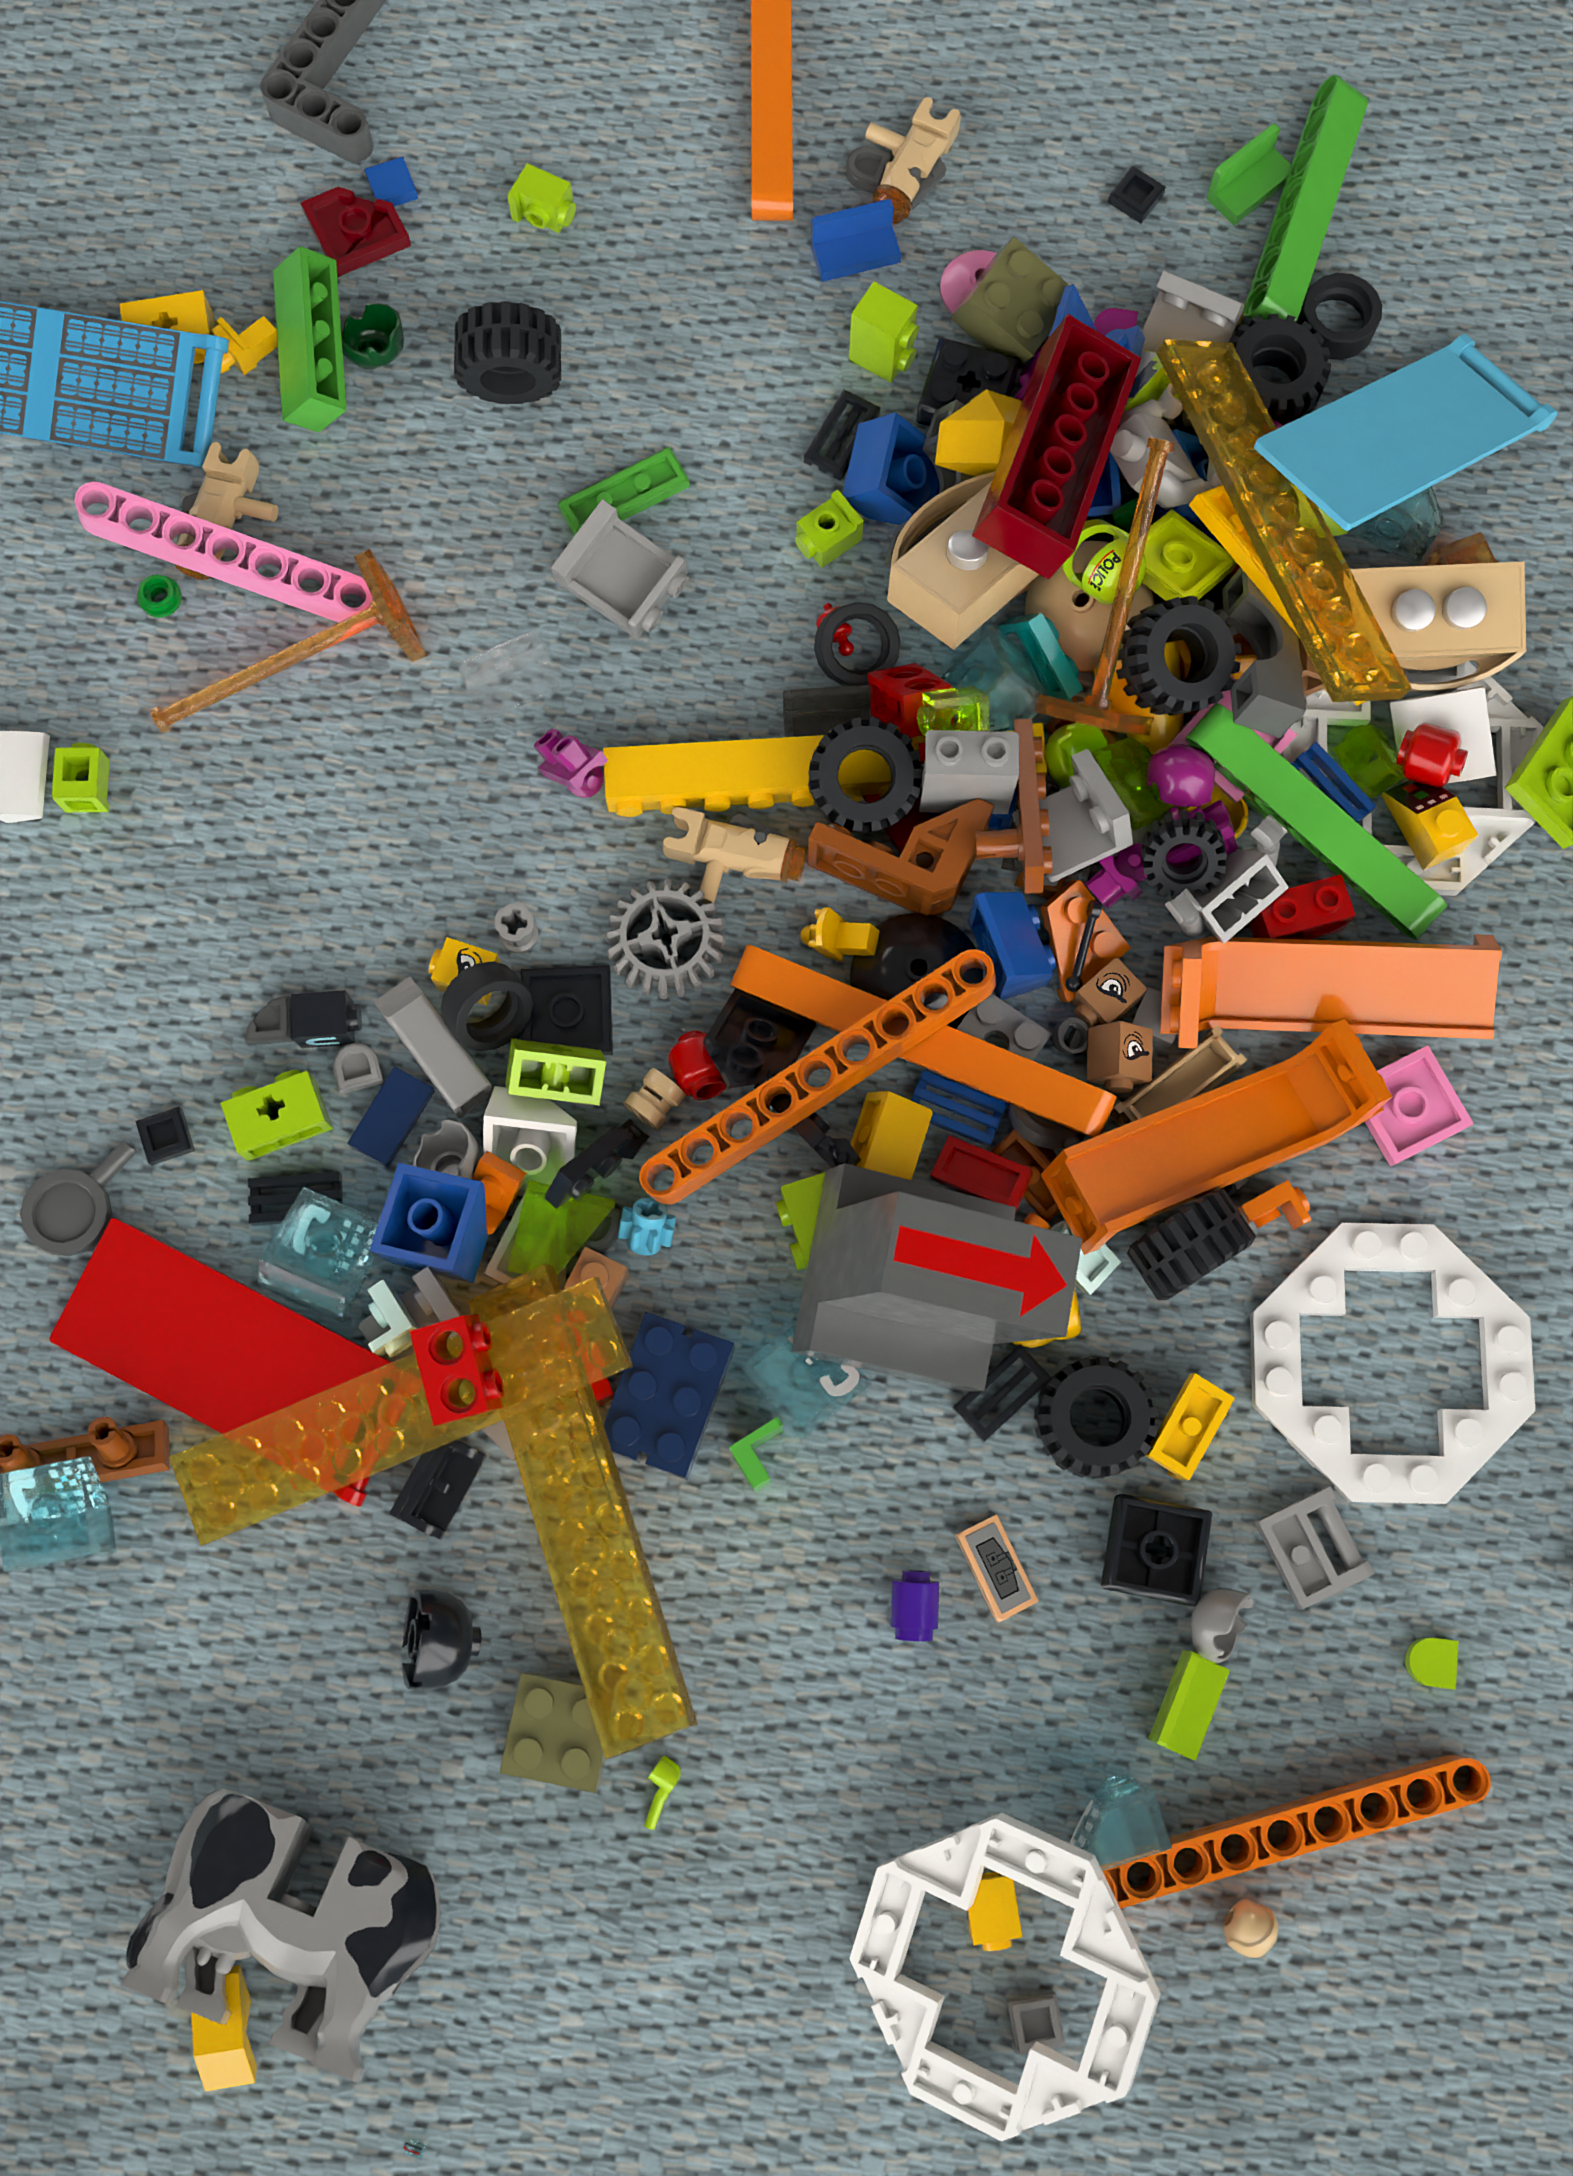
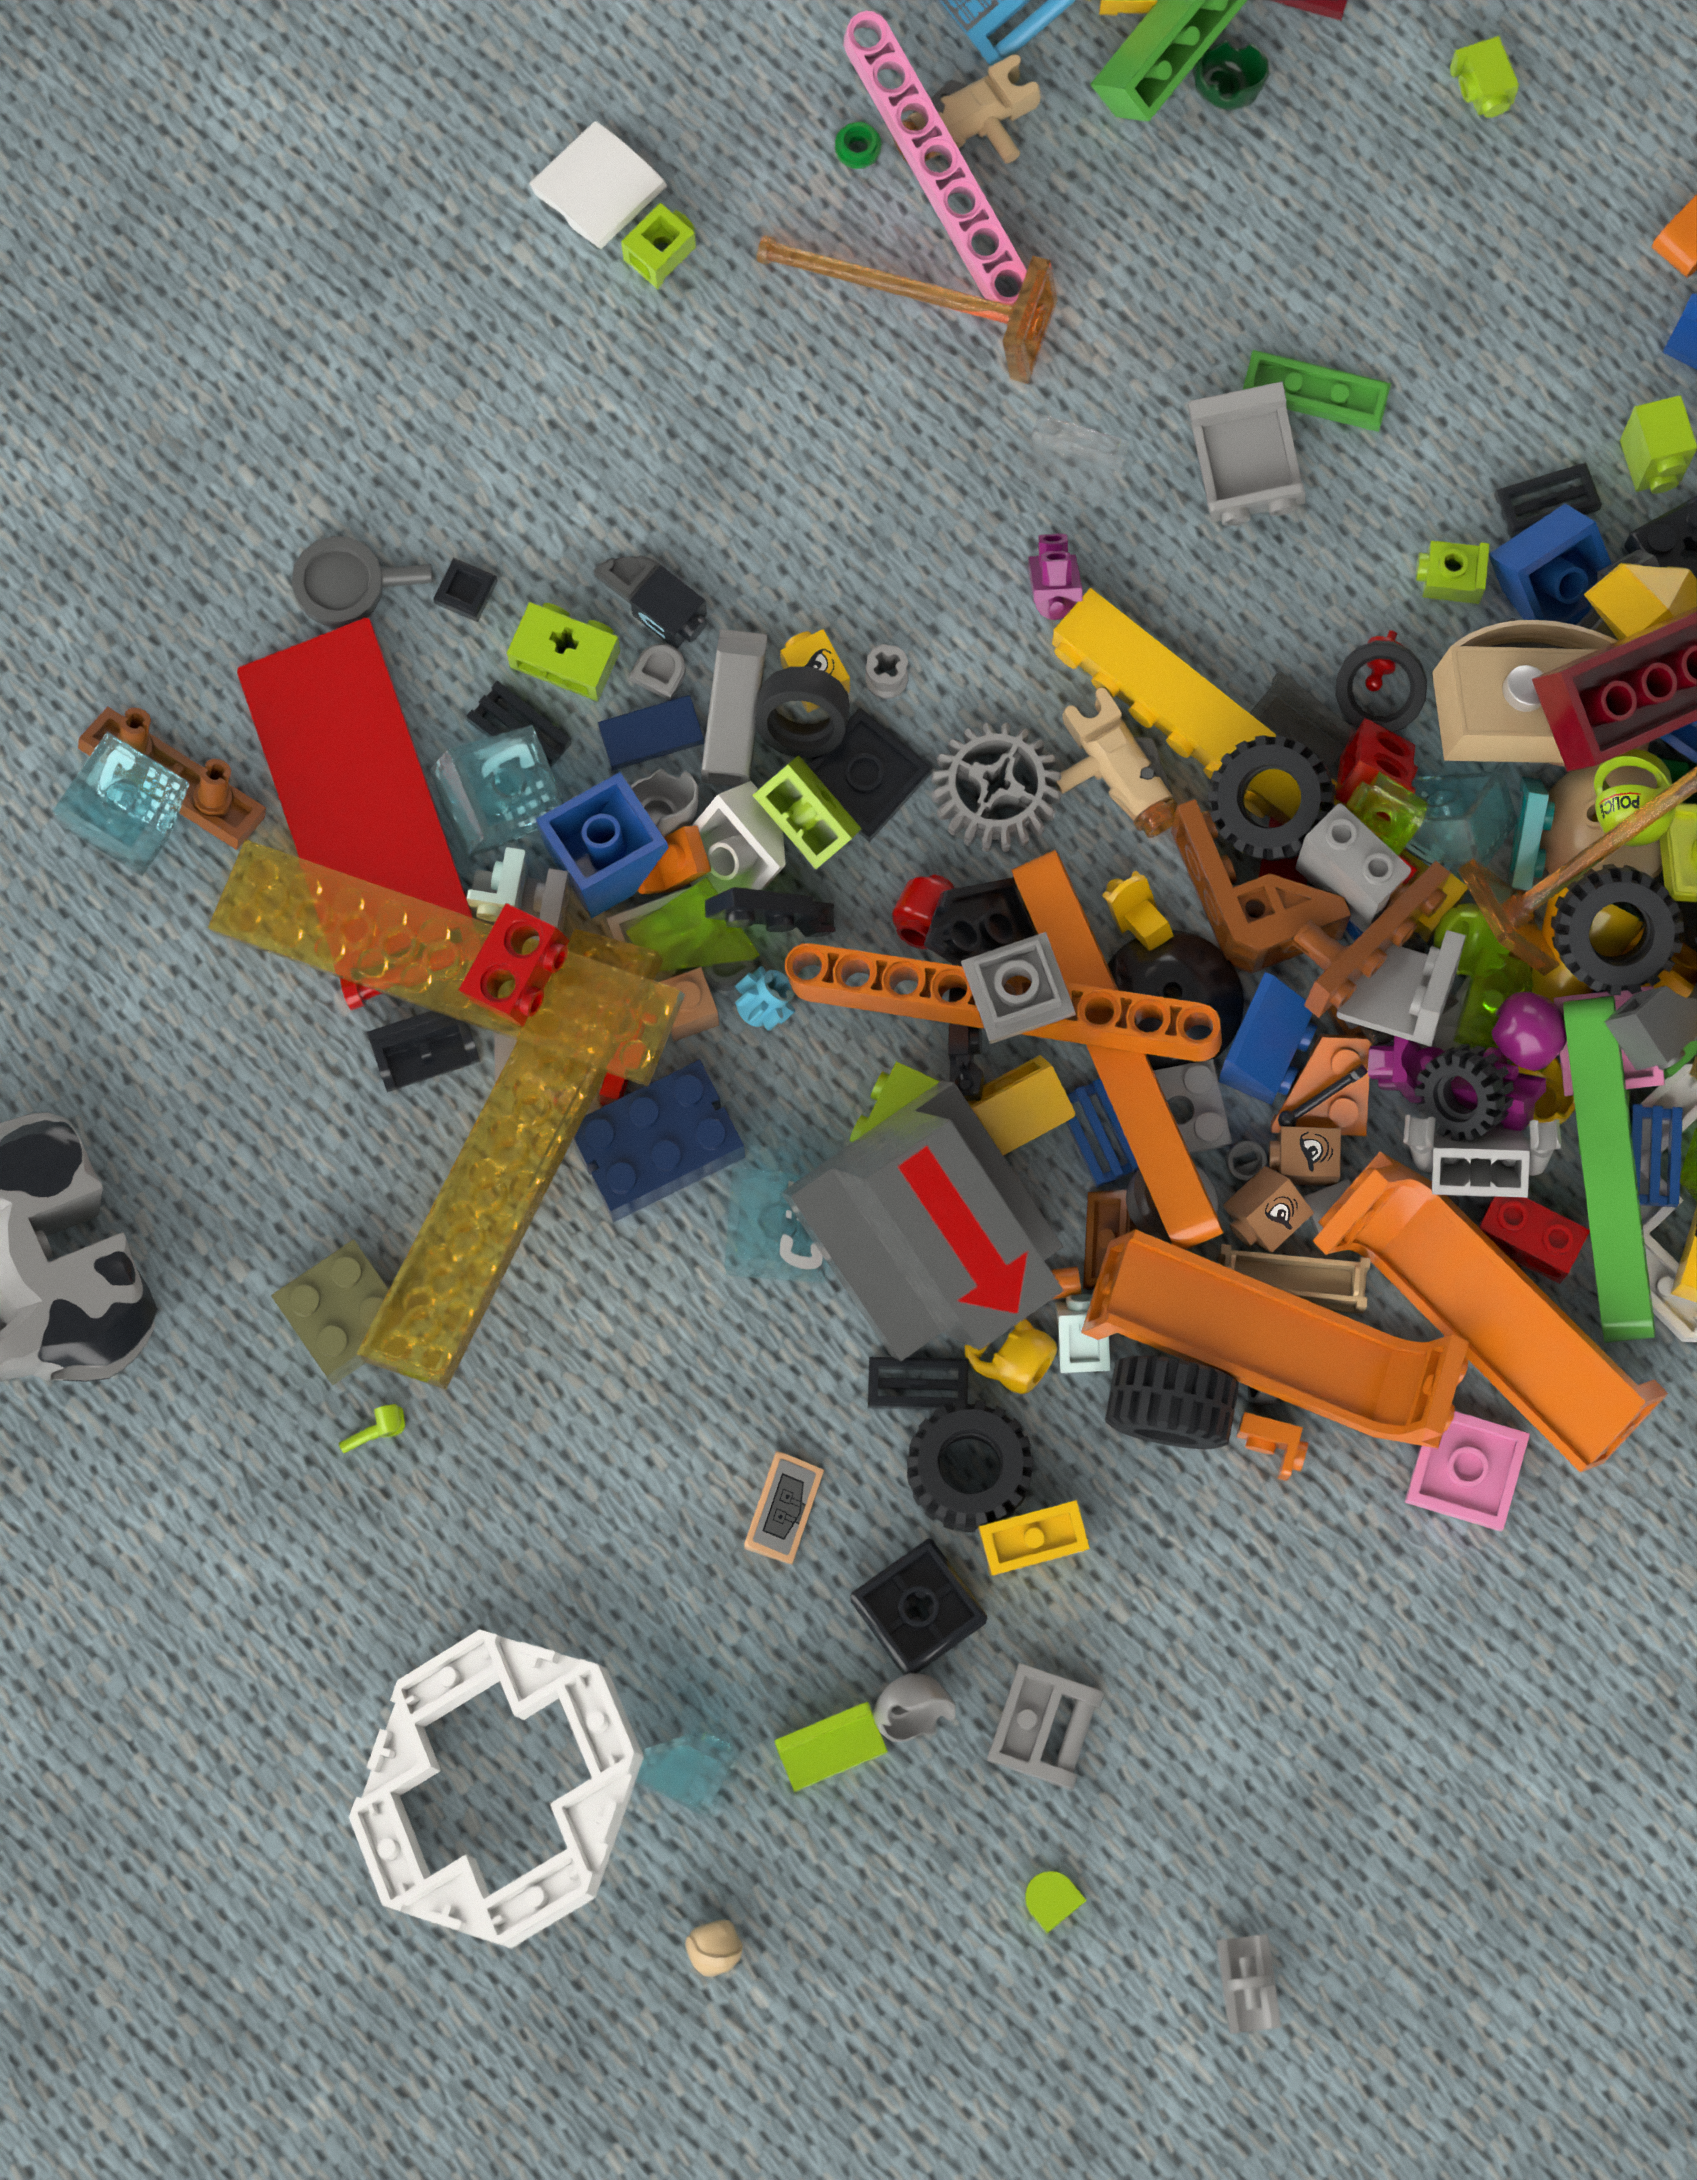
camera: 45 degrees right, 0 degrees up
(438, 1639) = (316, 1160): black cylinder -> none
(507, 353) = (1323, 189): black tyre -> none
(654, 1099) = (855, 910): tan wheel -> none
(748, 1460) = (680, 1232): bright green panel -> none
(835, 1083) = (1010, 1014): none -> light grey piece
(915, 1606) = (693, 1475): dark purple brick -> none
(981, 1173) = (1067, 1201): red tile -> none
(994, 1914) = (535, 1747): yellow brick -> none
(1034, 2020) = (494, 1857): light grey tile -> none
(1302, 1834) = (821, 1920): orange beam -> none
(1323, 1432) = (1359, 1649): white plate -> none

